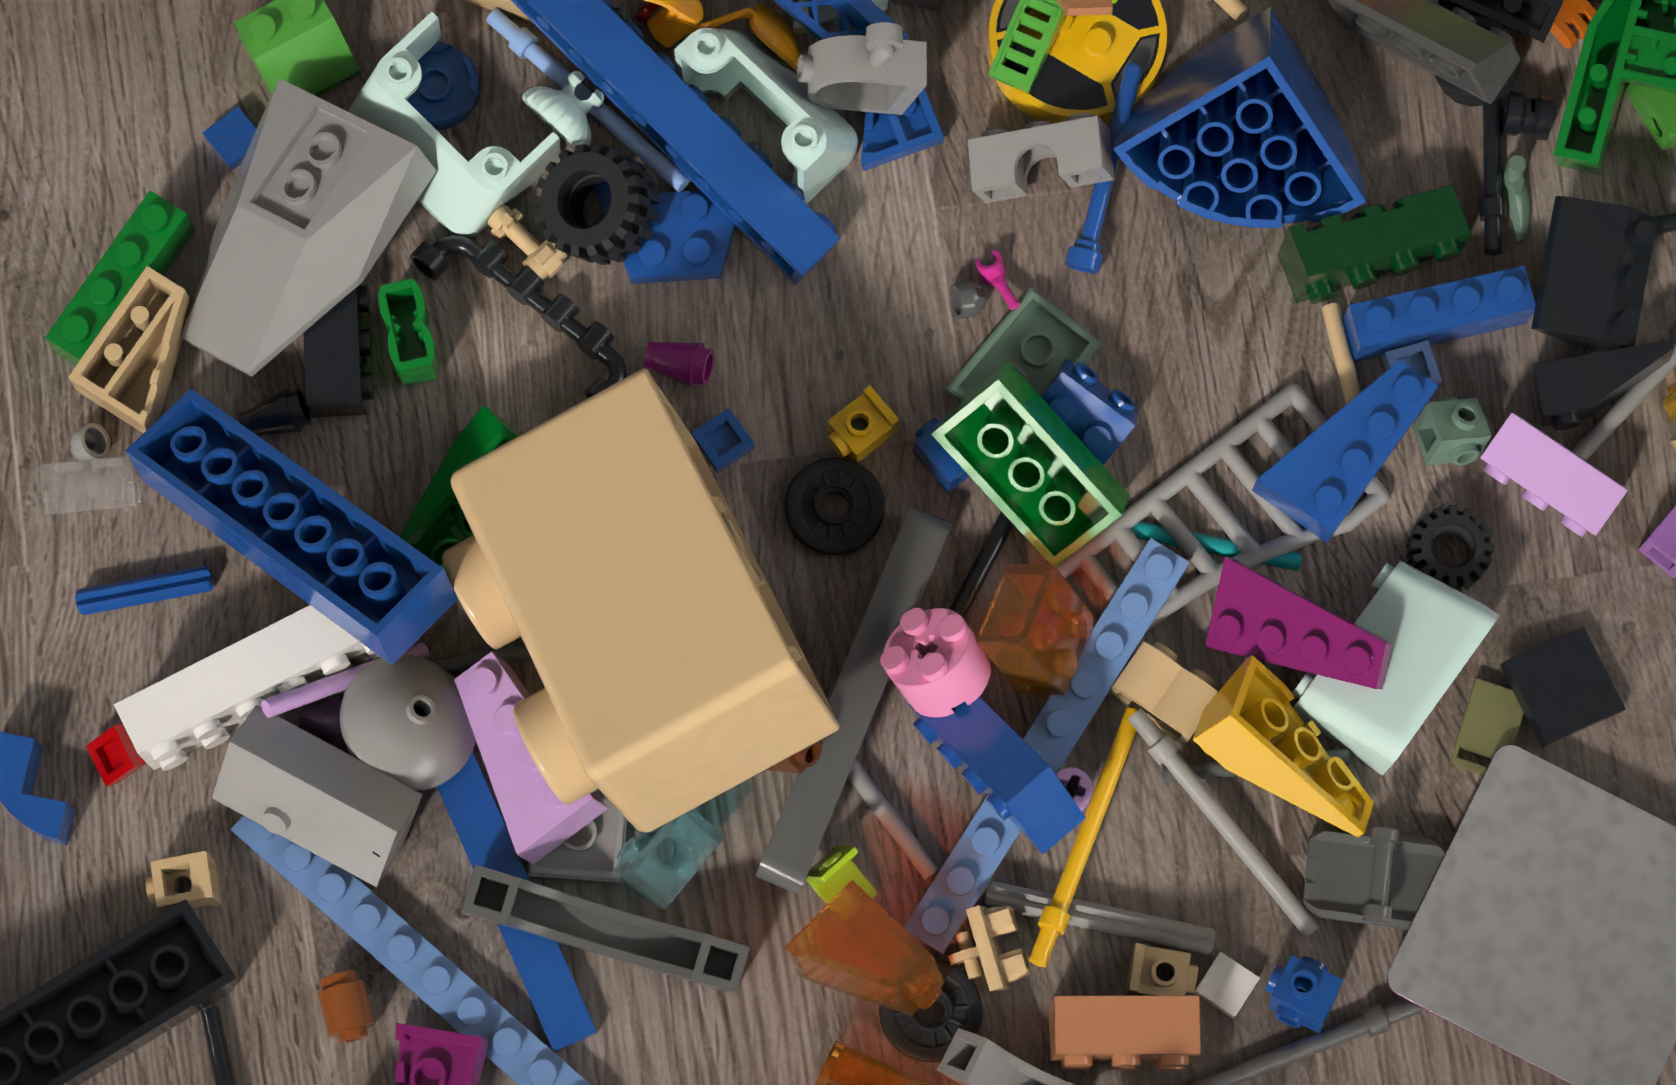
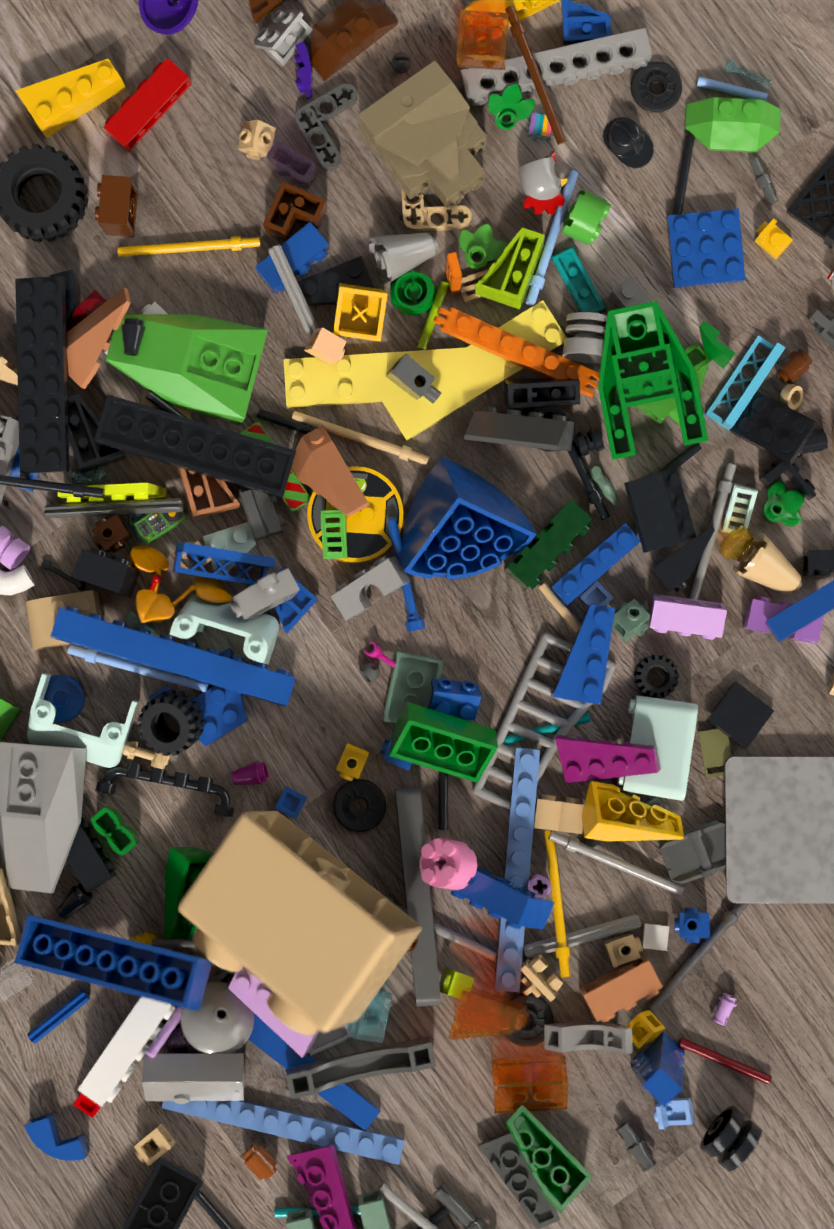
camera: 25 degrees left, 10 degrees up
(564, 110) = (130, 683): light aqua hair -> none
(1036, 629) = (485, 822): clear orange brick -> none

